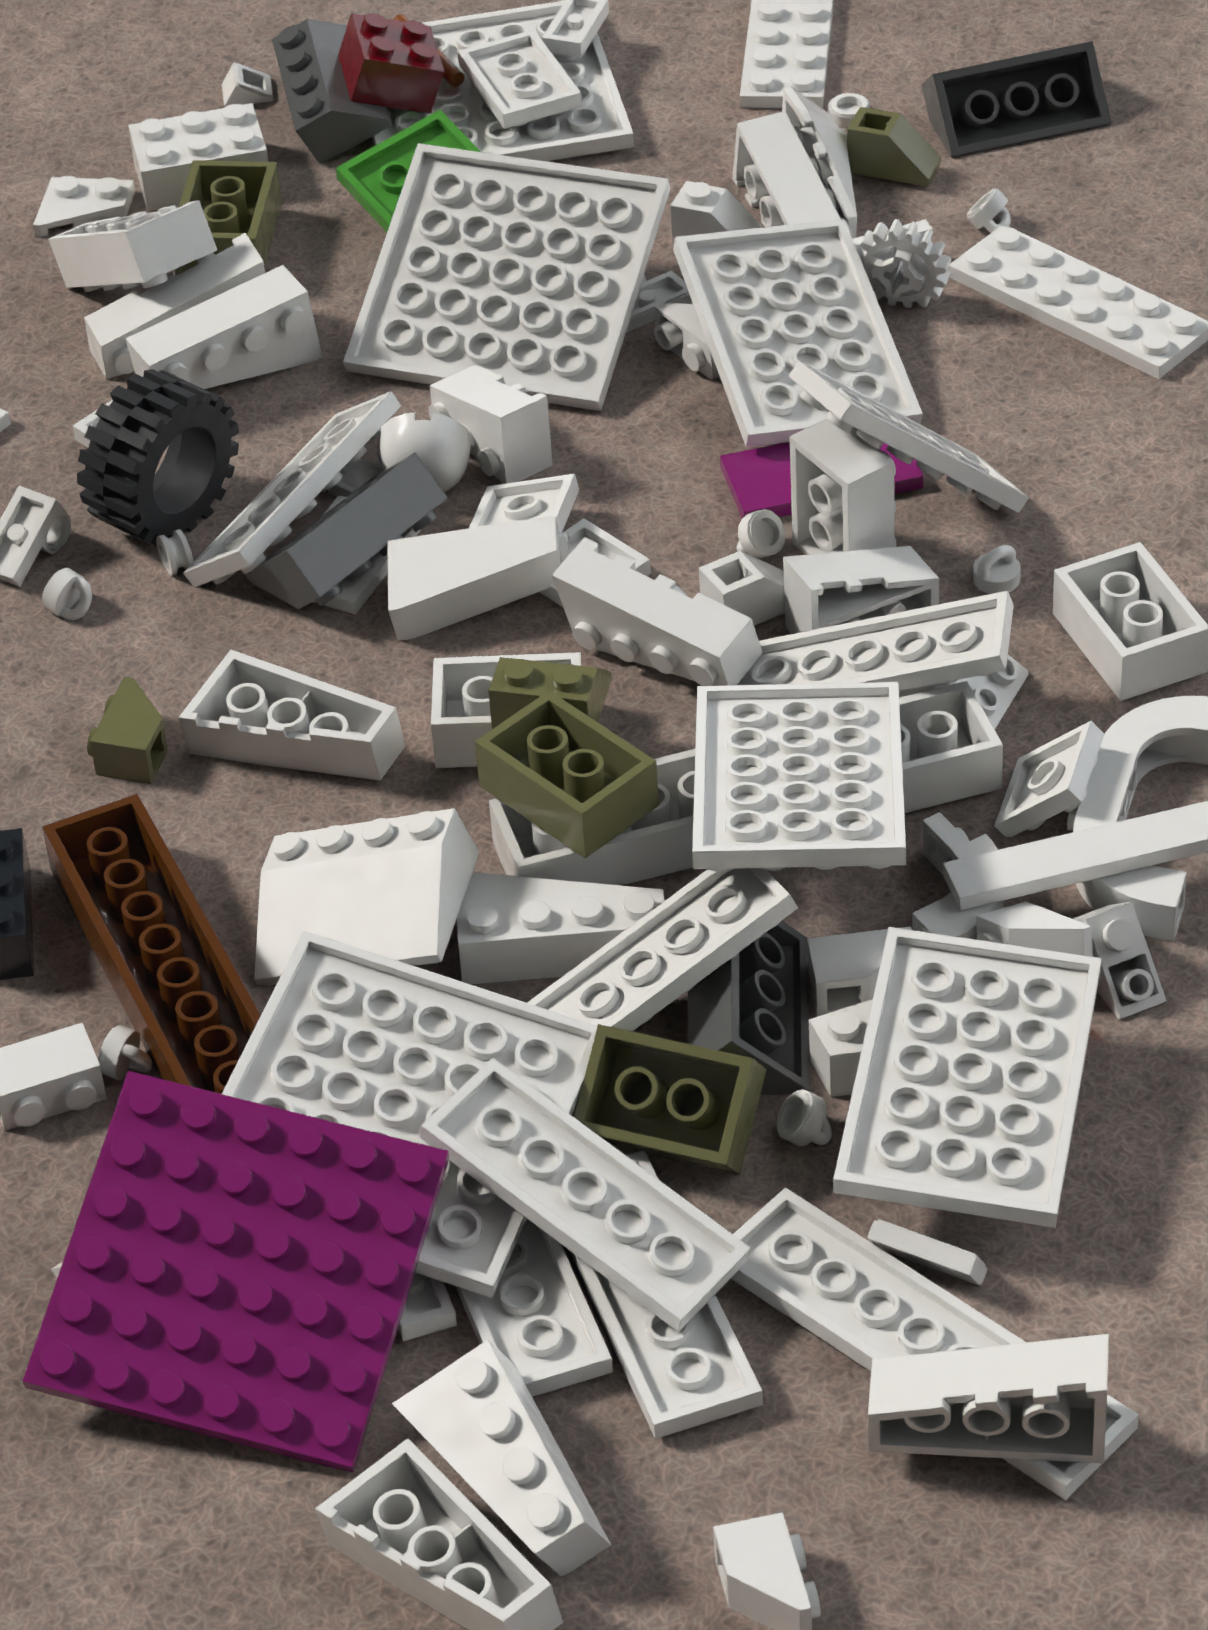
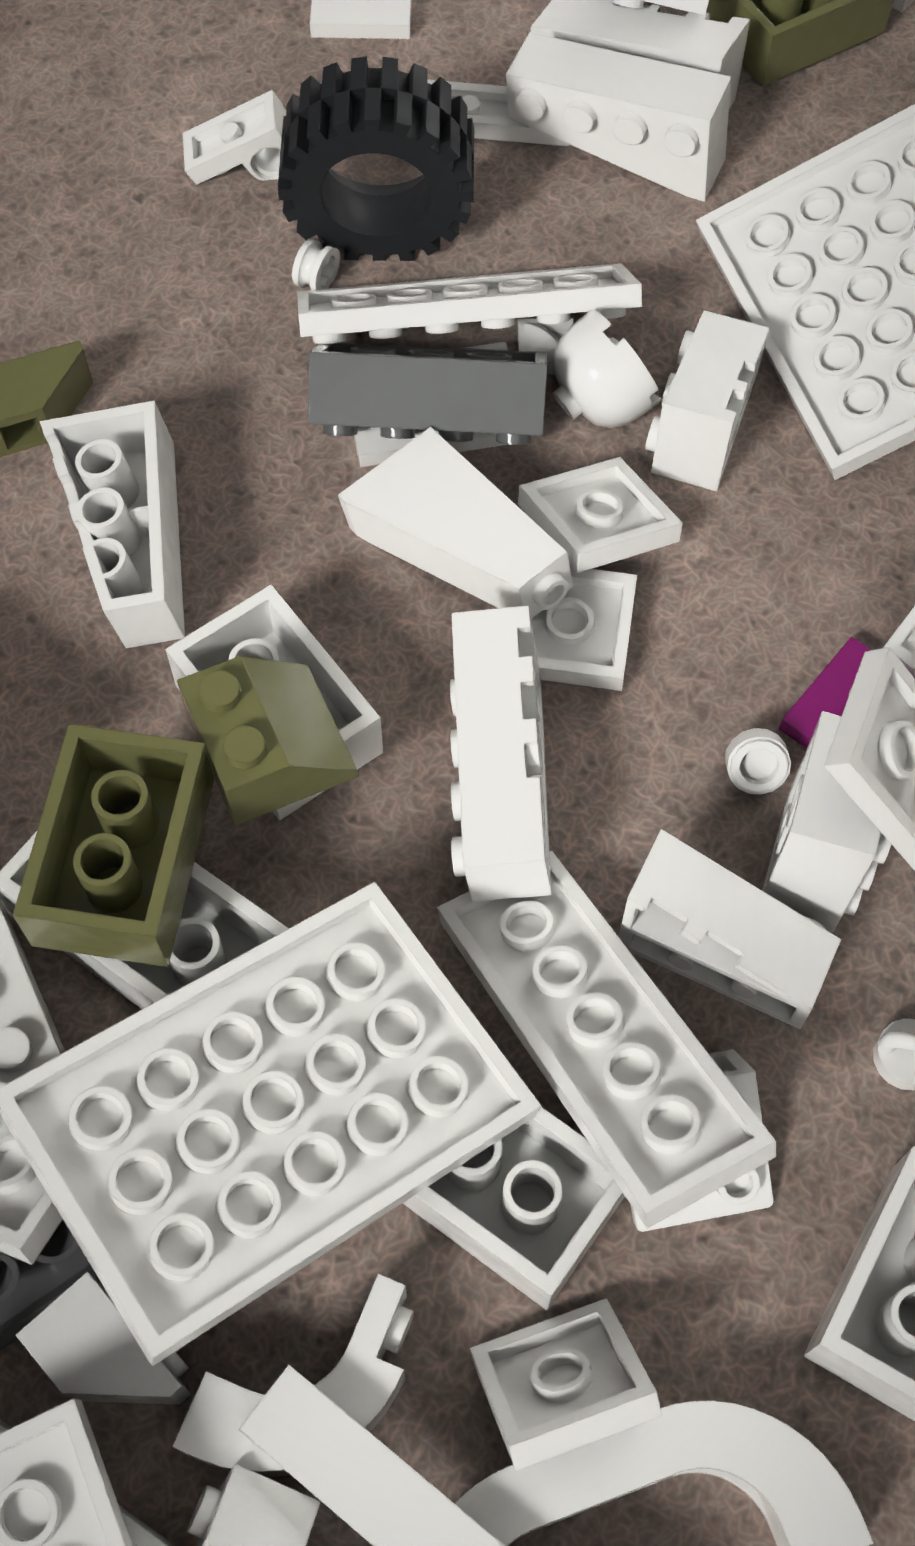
camera: 50 degrees right, 20 degrees up
(64, 591) = (194, 221): white tile -> none
(745, 586) = (635, 800): white slope -> none

